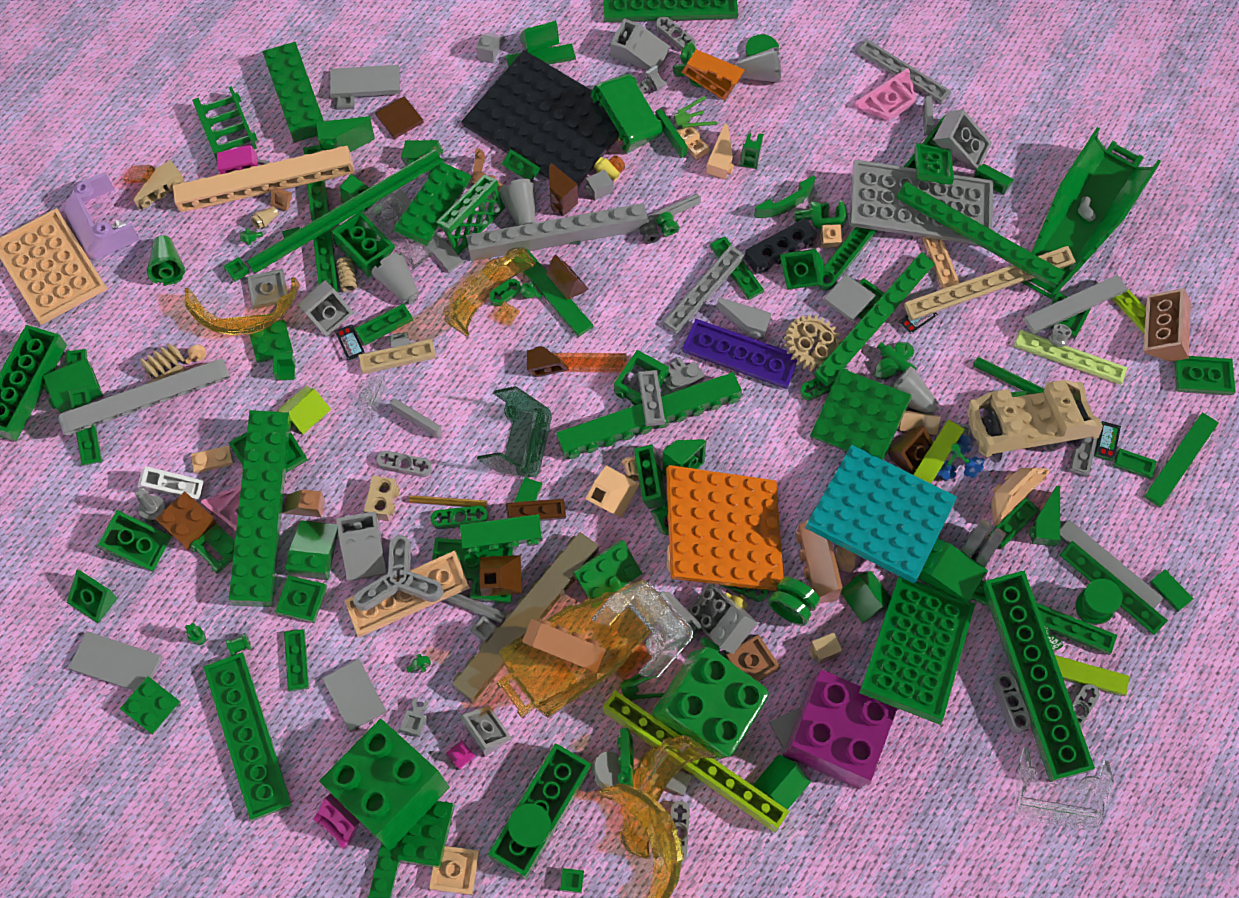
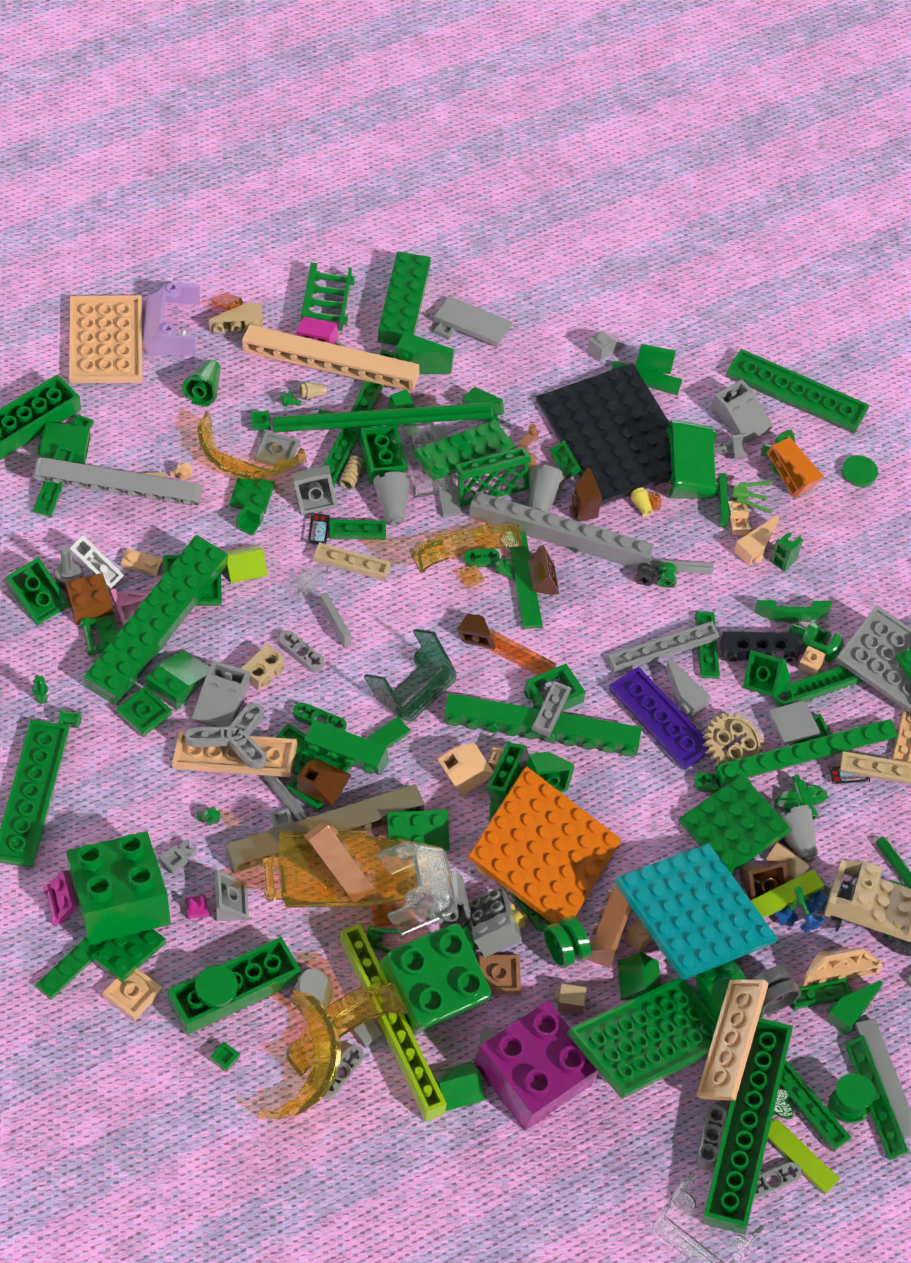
camera: 25 degrees right, 10 degrees down
(161, 360) = (150, 461): tan piece -> none
(280, 198) = (335, 382): nougat tile -> none
(296, 660) = (109, 757): green tile -> none
(304, 503) = (196, 637): nougat slope -> none
(354, 695) = (139, 809): light grey tile -> none
(399, 117) = (484, 366): reddish brown tile -> none
(399, 339) = (362, 548): light grey tile -> none
(447, 501) = (318, 701): pearl gold bar -> none
(547, 509) = (397, 751): reddish brown tile -> none
(599, 185) = (625, 511): light grey brick -> none
(626, 760) = (336, 984): green hinge -> none
(673, 28) = (786, 412): light grey beam -> none
(682, 375) = (596, 708): light grey hinge -> none
(762, 66) = (847, 484): light grey cone -> none
(983, 611) = (732, 1040): none -> light nougat plate

